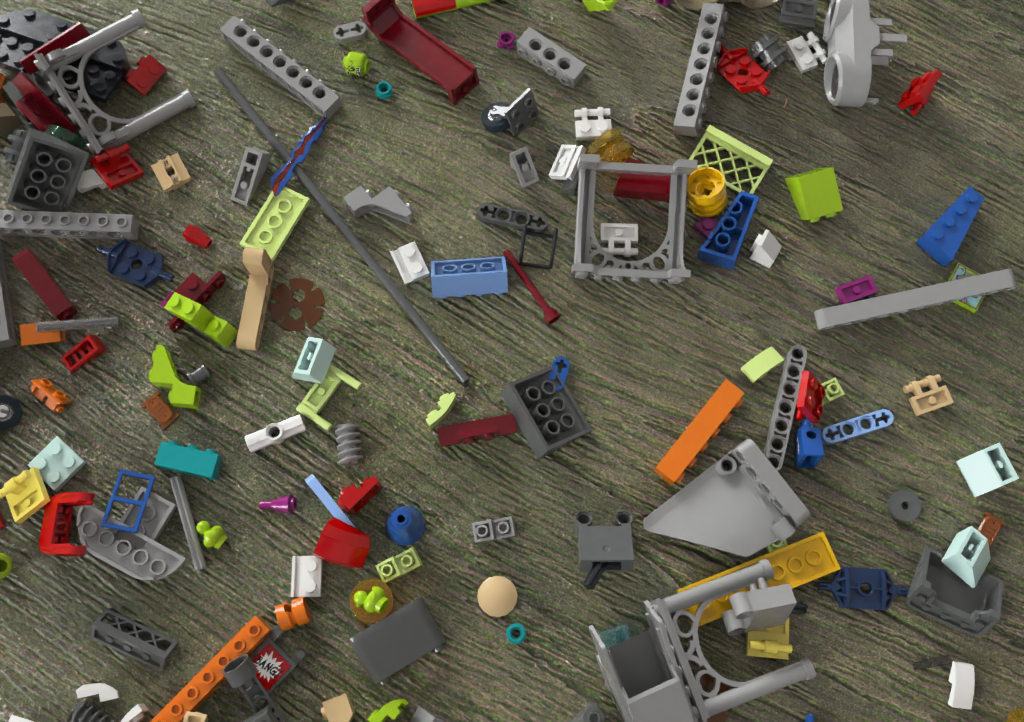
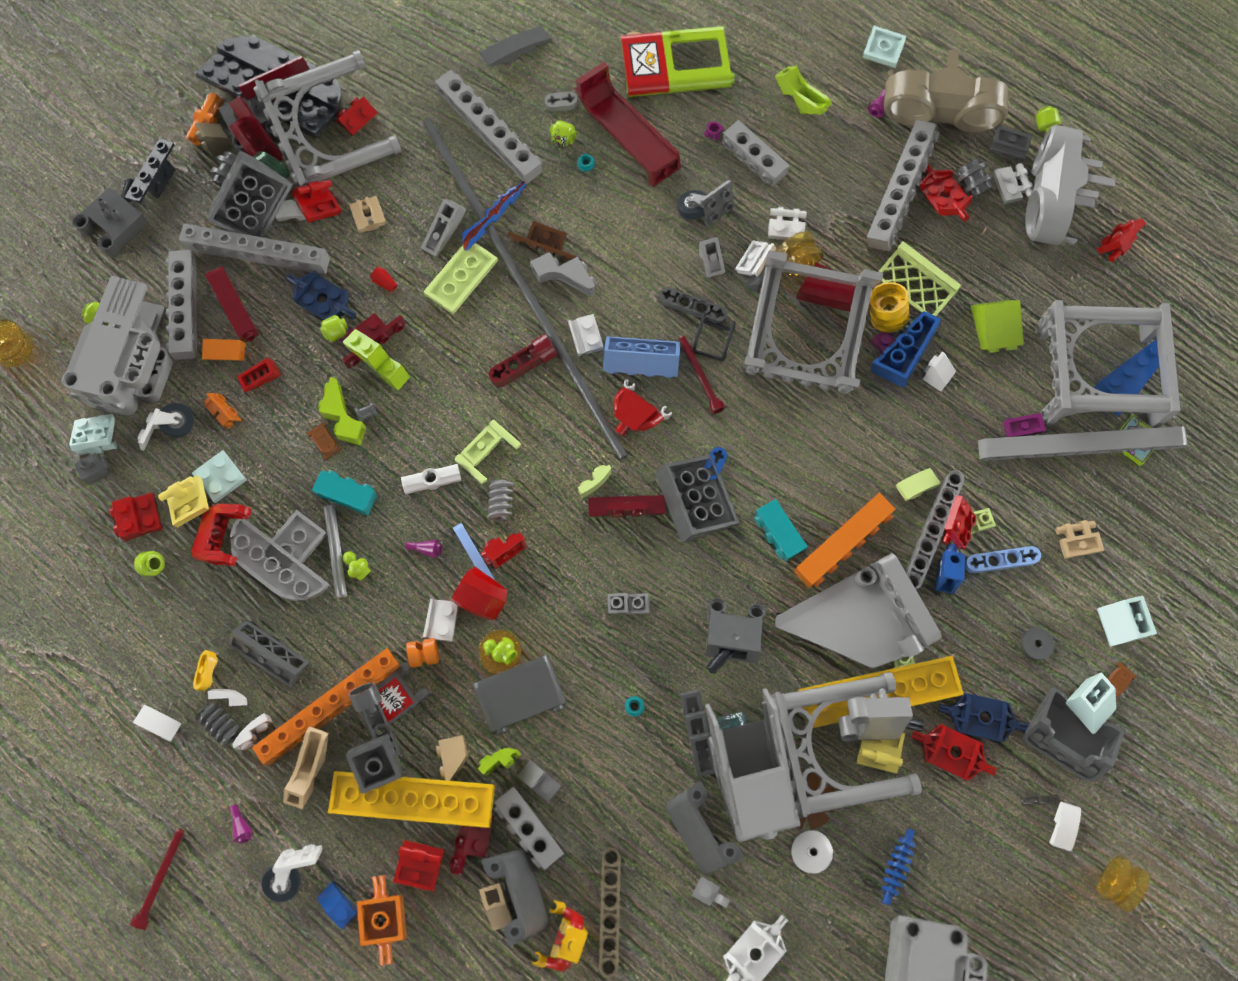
camera: 10 degrees right, 0 degrees up
(70, 667) = (206, 665): none -> yellow plate
(77, 324) = (257, 346): light grey axle -> none
(129, 501) = (269, 517): blue window -> none
(153, 294) = (333, 328): none -> lime head
(256, 298) = (432, 346): tan beam -> none
(309, 312) = (460, 355): reddish brown piece -> none
(314, 360) = (479, 414): light aqua slope -> none
(354, 171) = (544, 237): none -> reddish brown bracket
(366, 285) = (541, 352): none -> dark red beam
(399, 565) = (531, 623): yellowish green slope -> none
(408, 531) = (543, 586): blue cone -> none
(471, 333) = (636, 411): none -> red torso
(497, 596) = (621, 668): tan dish -> none
(583, 649) = (697, 732): none -> dark grey slope
(619, 233) = (795, 336): white plate -> none
(633, 432) = (780, 531): none -> teal brick
(823, 628) = (937, 749): none -> red plate
(962, 171) = (1152, 323): none -> light grey arch

